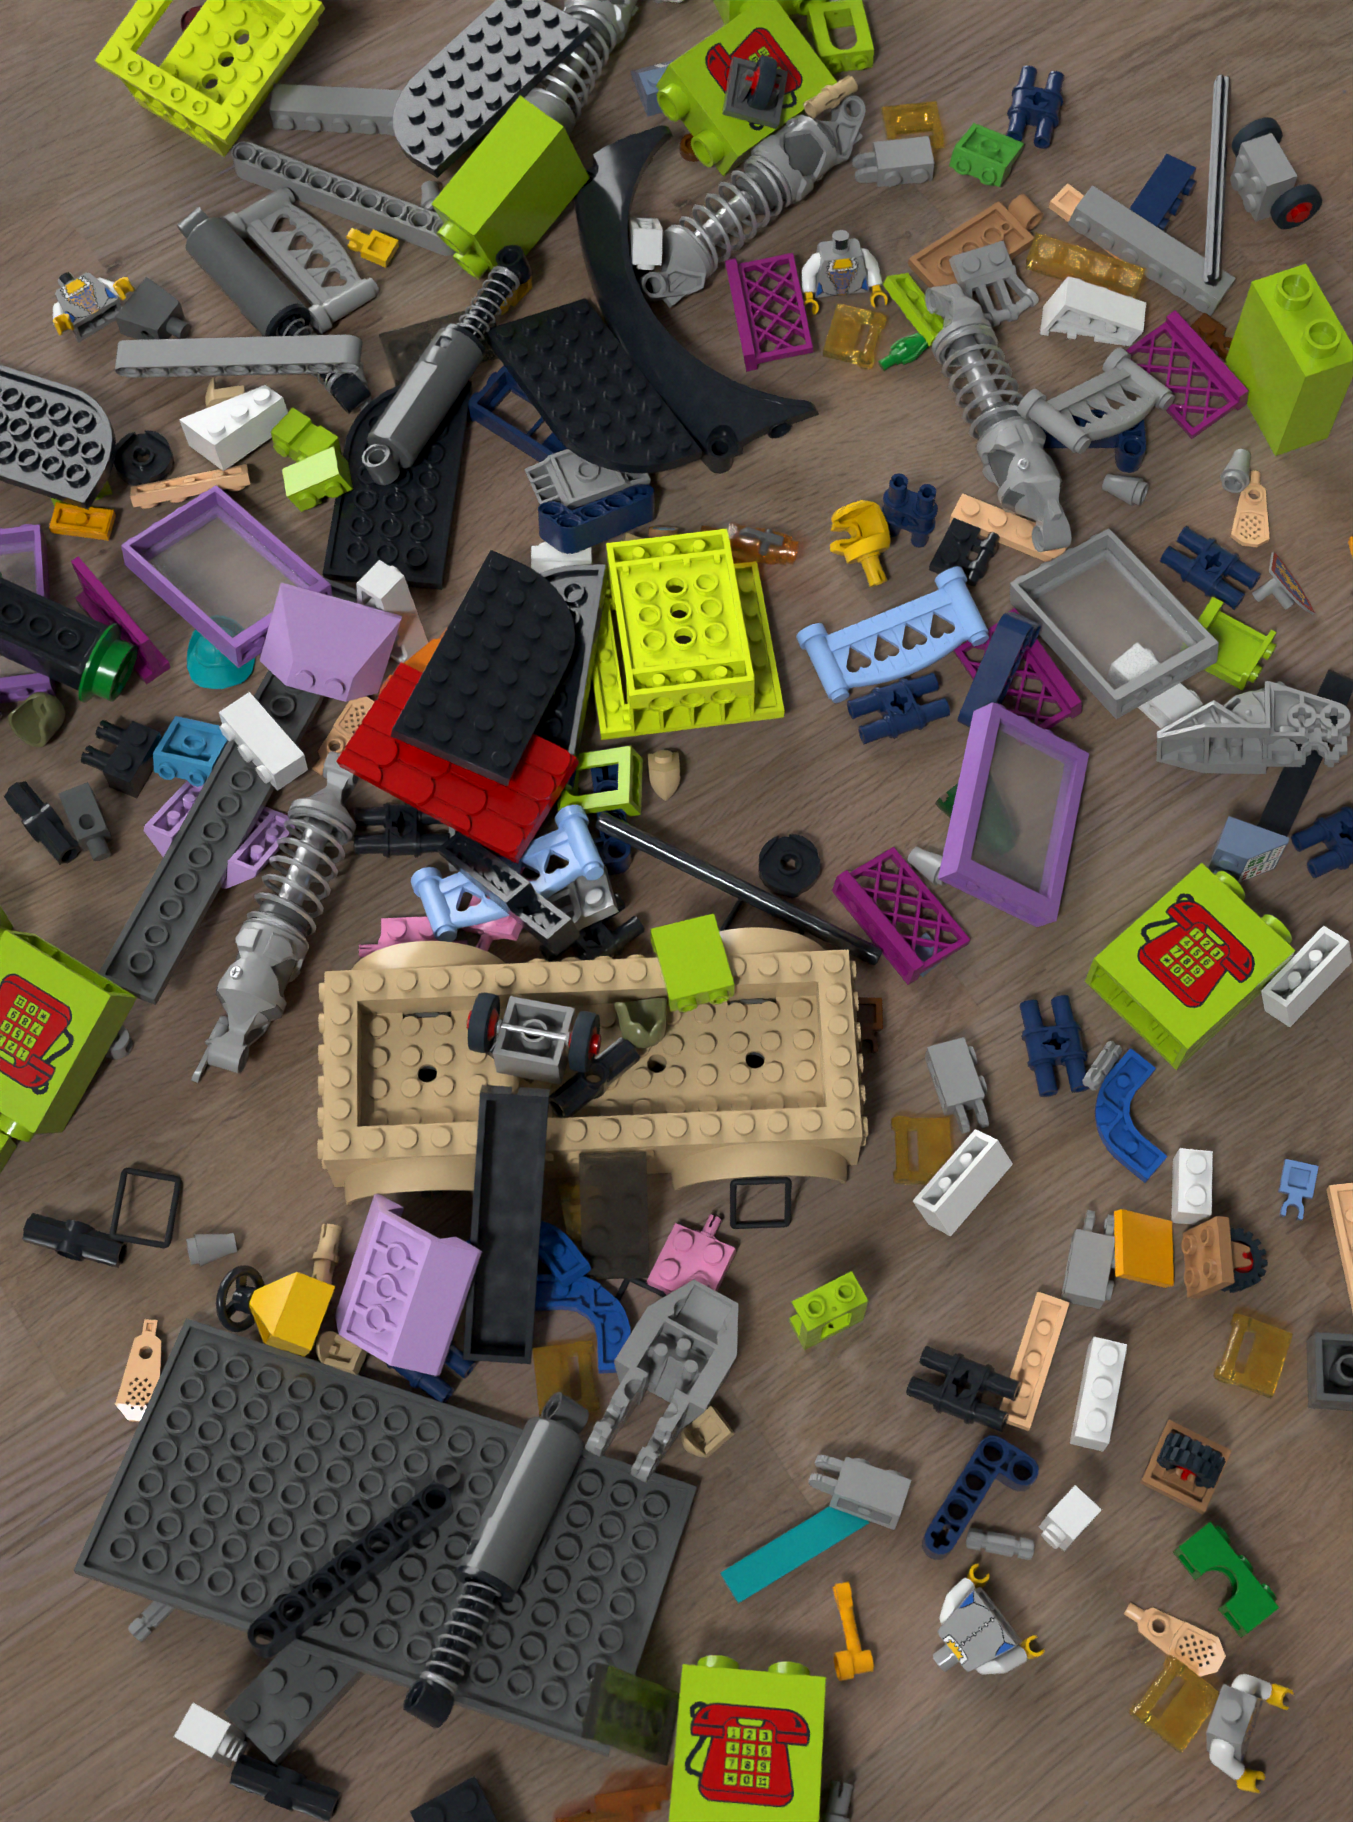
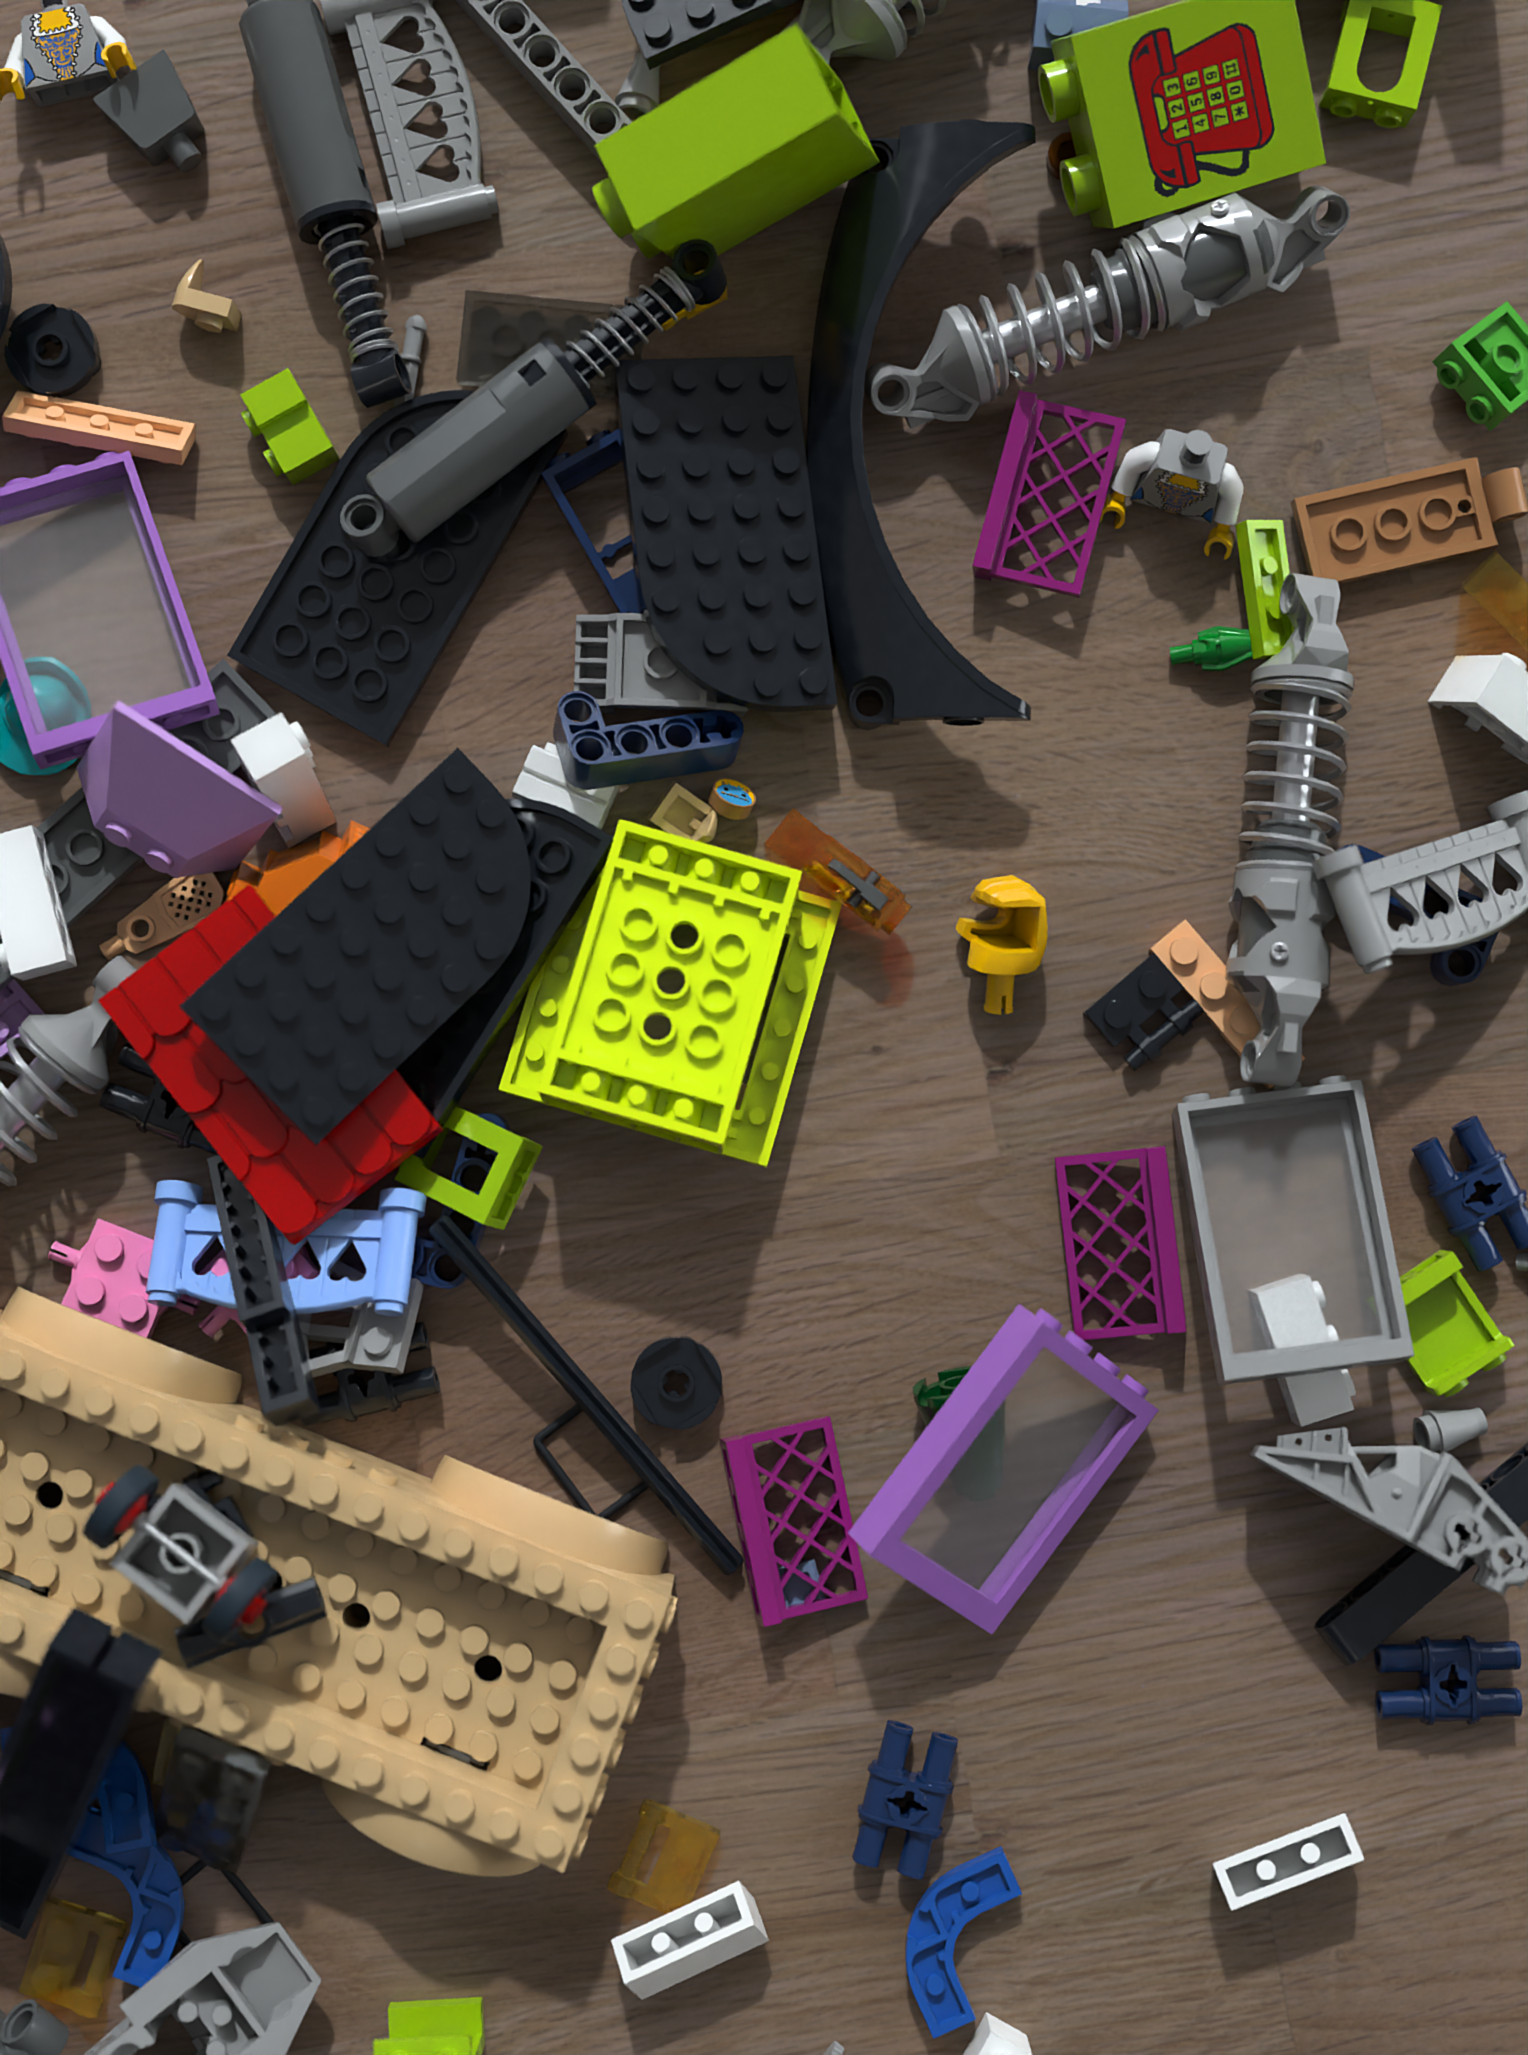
camera: 25 degrees right, 20 degrees up
(234, 426) = (197, 360): white wedge -> none
(238, 356) = (241, 252): light grey beam -> none
(317, 477) = (276, 503): lime brick -> none
(374, 248) = (524, 133): yellow plate -> none
(642, 1021) = (352, 1566): olive hair -> none
(645, 242) = (911, 314): white brick -> none
(664, 773) = (569, 1168): tan plate -> none
(690, 1257) = (297, 1880): bright pink plate -> none
(693, 963) = (447, 1528): lime panel -> none
(755, 91) = (1184, 137): dark grey plate -> none
(760, 1181) = (436, 1872): black piece -> none
(830, 96) = (1301, 183): tan pin -> none
(845, 332) = (1141, 583): clear yellow plate -> none
(871, 1019) = (677, 1652): reddish brown plate -> none
(894, 721) = (952, 1197): dark blue pin -> none
(896, 162) = (1357, 322): light grey hinge -> none
(910, 509) = (1086, 935): dark blue pin -> none
(913, 119) = (1417, 253): clear yellow plate -> none
(927, 863) = (865, 1467): light grey cone -> none
(950, 602) = (1080, 1095): light blue piece -> none
(957, 1081) = (752, 1792): light grey hinge -> none
(988, 267) = (1399, 568): light grey plate -> none
(1000, 663) = (1096, 1235): dark blue beam -> none
(1102, 1065) = (953, 1859): light grey axle -> none
(1128, 489) = (1422, 1014): light grey cone -> none
(1190, 964) = (1144, 1781): lime brick -> none
(1246, 850) = (1286, 1651): sand blue slope -> none

